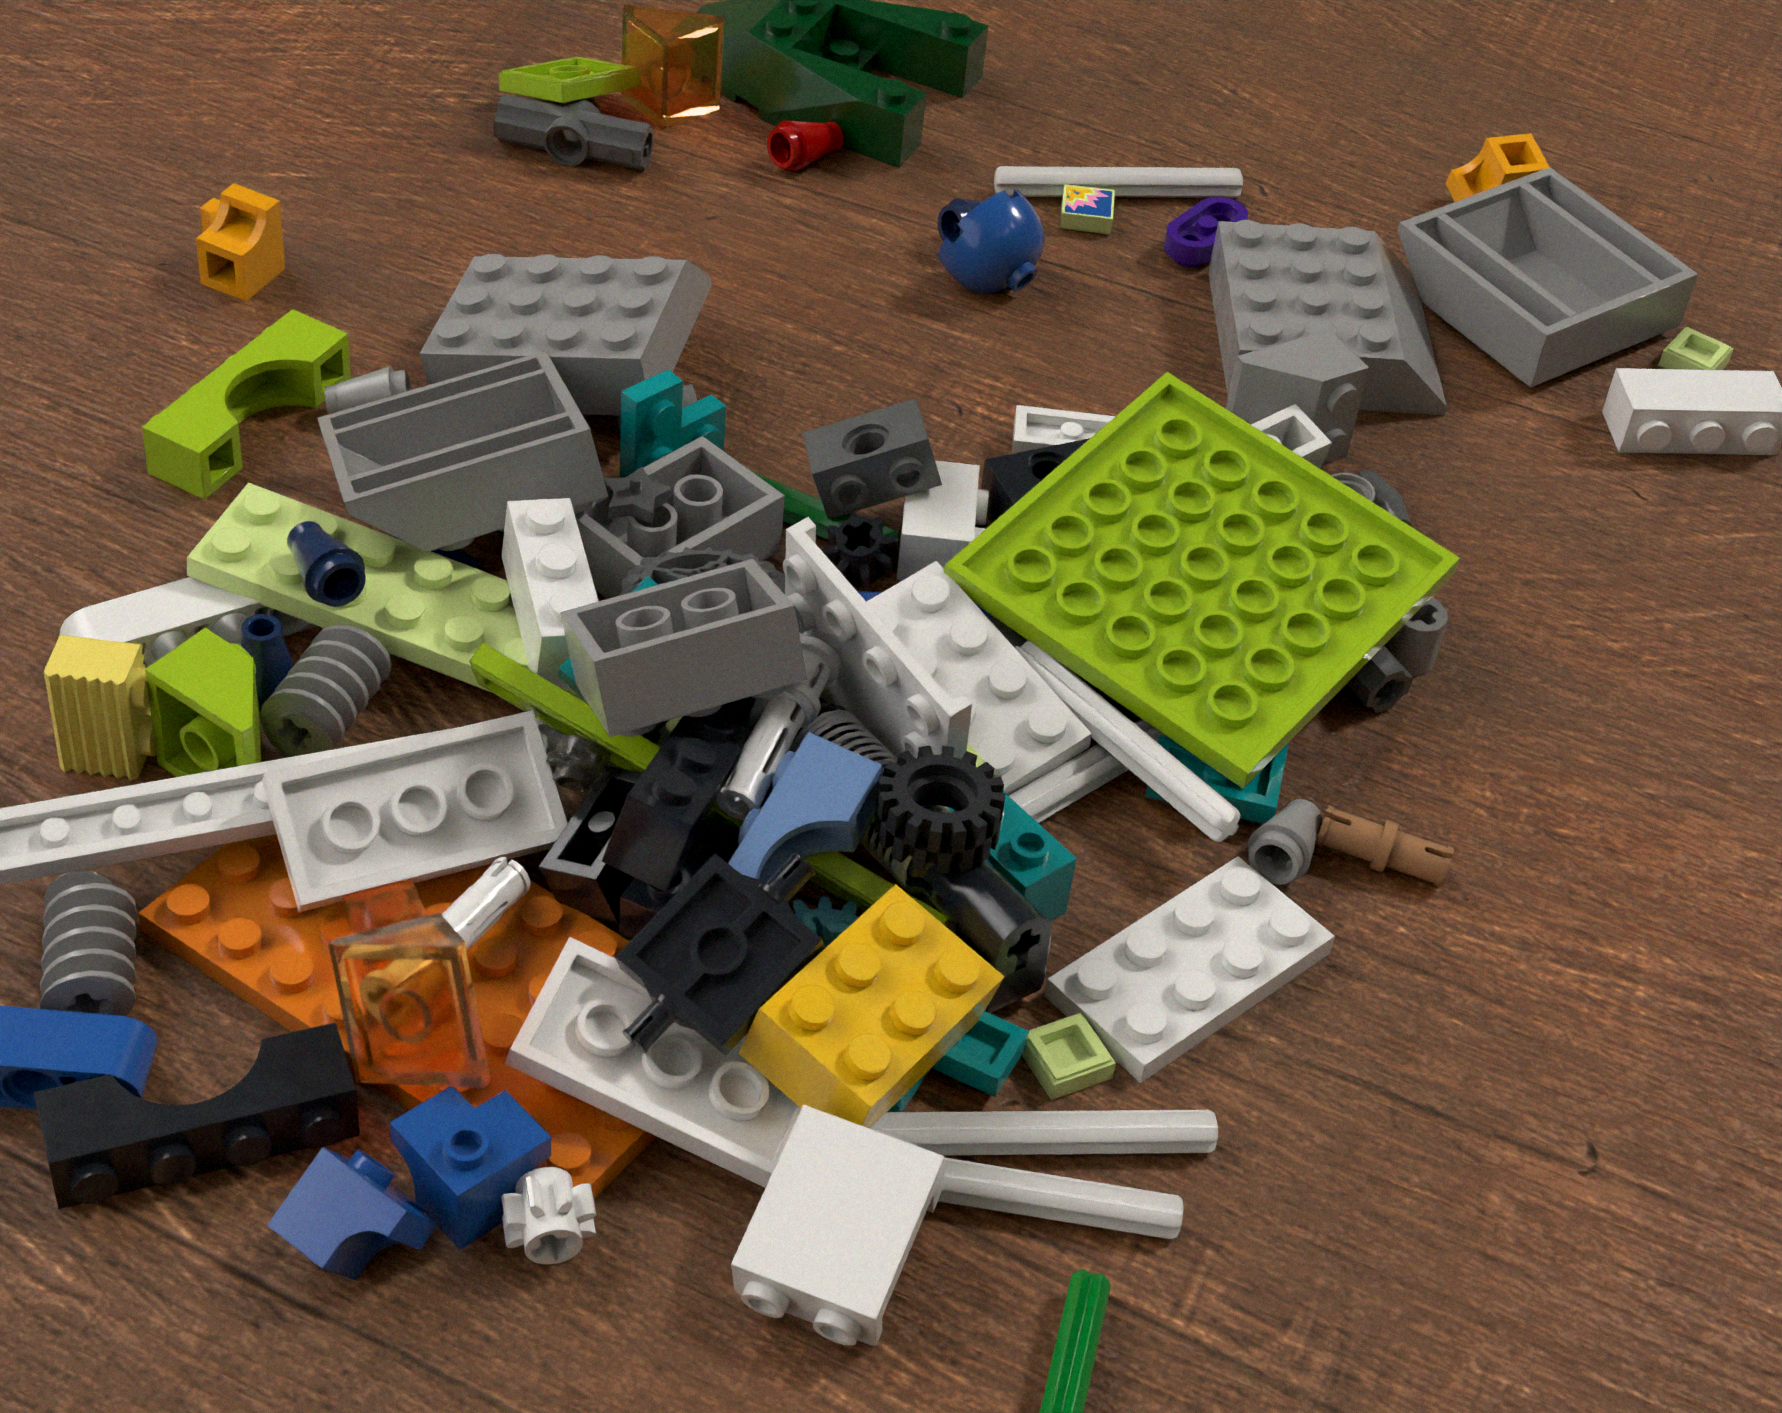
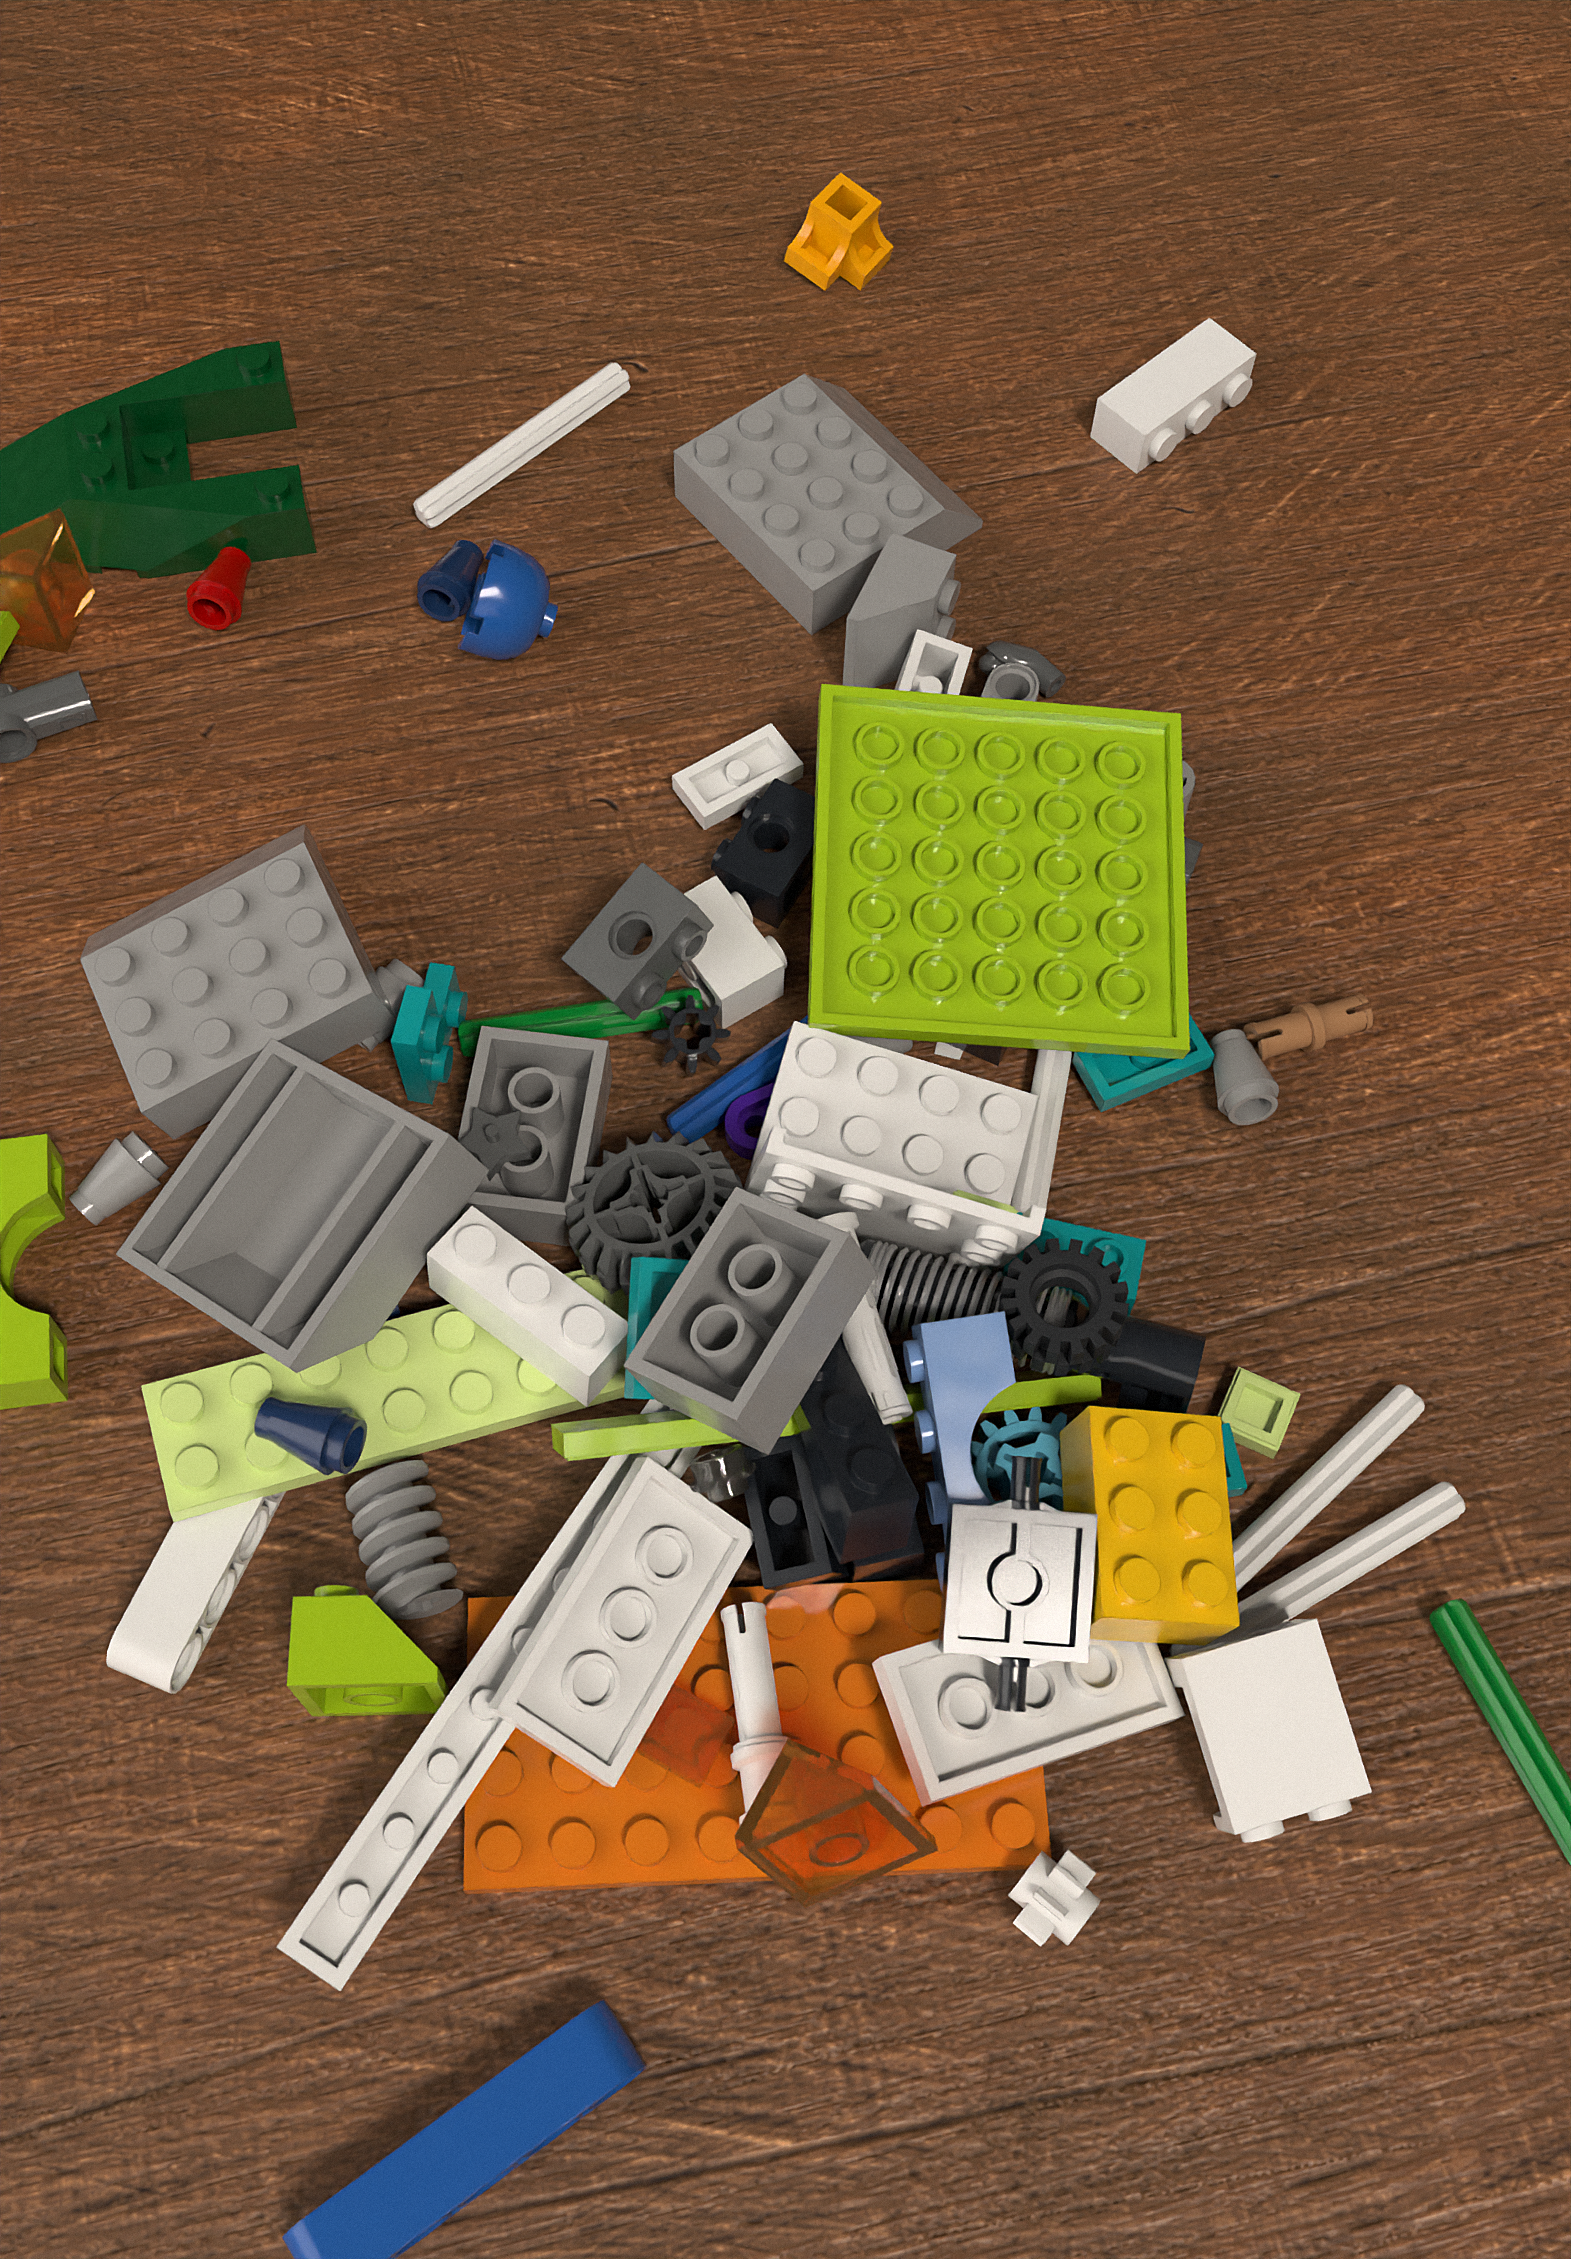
camera: 35 degrees left, 20 degrees up
(88, 946) = (470, 1972): light grey piece -> none
(99, 706) = (244, 1724): light yellow brick -> none
(114, 1143) = (658, 2132): black arch -> none
(272, 659) = (334, 1564): dark blue cone -> none
(348, 1213) = (925, 2031): blue brick -> none
(468, 1158) = (961, 1905): blue brick -> none
(1087, 209) = (523, 494): tile -> none
(1136, 749) = (1075, 1083): white axle -> none
(1189, 967) = (1269, 1254): white plate -> none
(1193, 233) = (645, 454): dark purple plate -> none
(1544, 275) = (956, 326): light grey slope -> none
(1695, 352) = (1116, 327): yellowish green tile -> none

